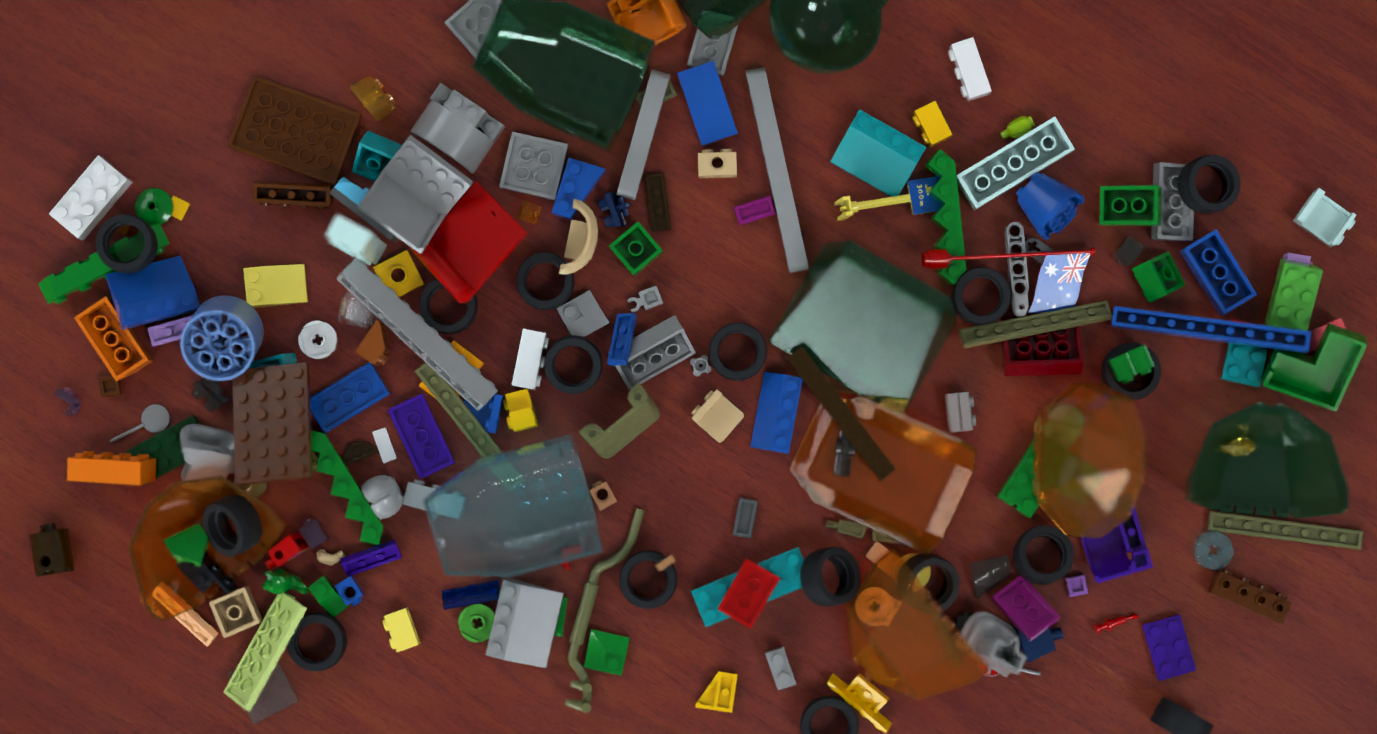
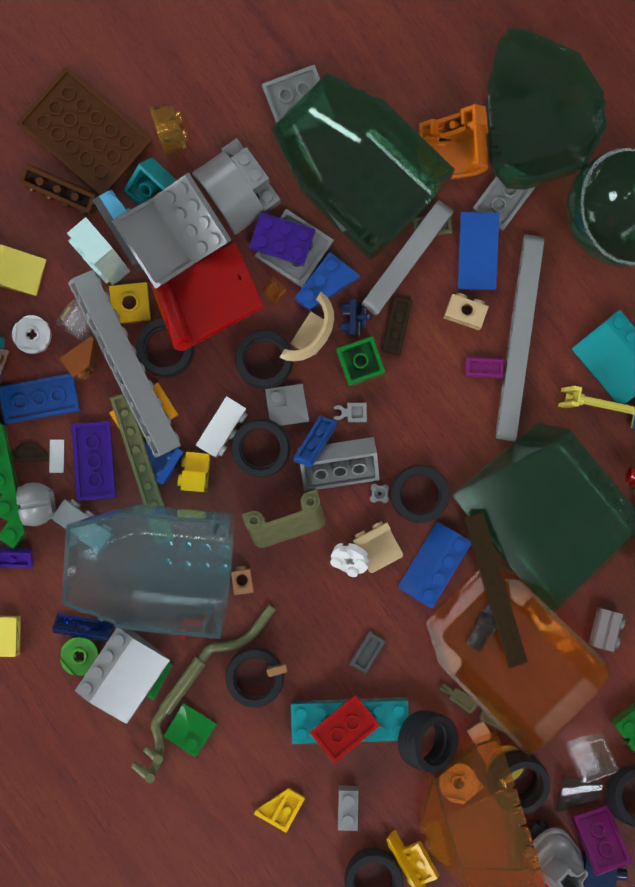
camera: 10 degrees right, 0 degrees up
(519, 161) = (282, 239): none -> dark purple plate
(686, 438) = (341, 559): none -> white plate
(989, 535) = (592, 757): none -> clear slope

